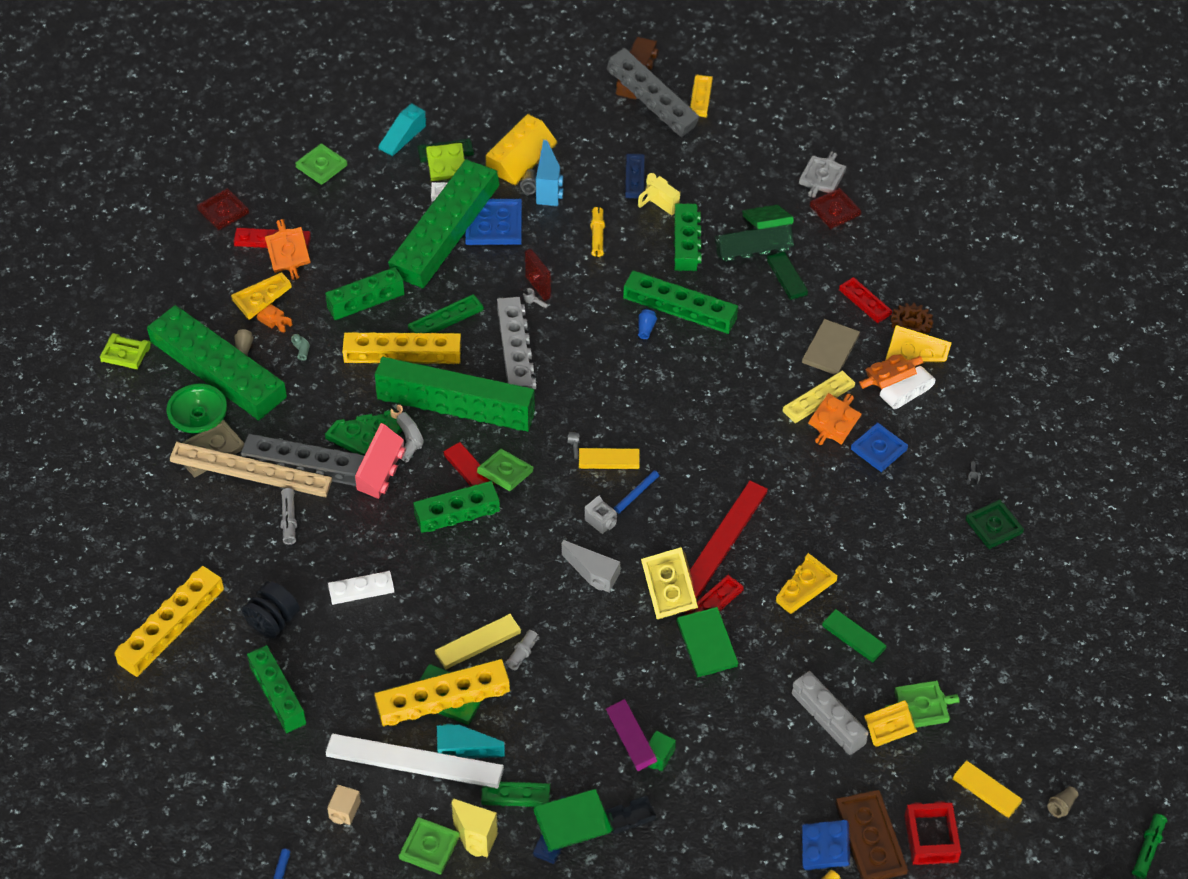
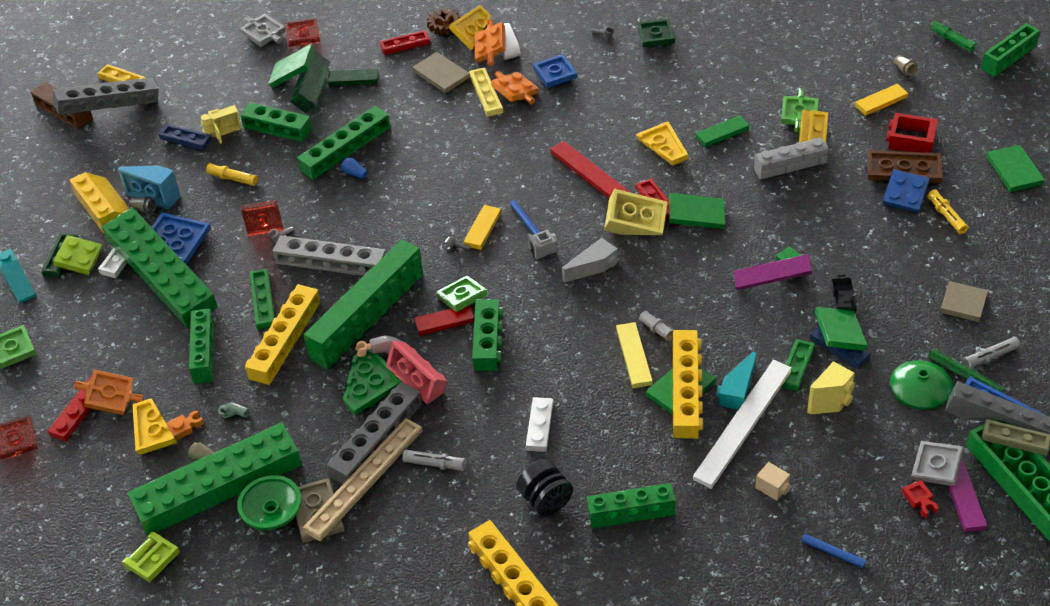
camera: 65 degrees left, 5 degrees down
(429, 845) = (831, 431): bright green plate -> none

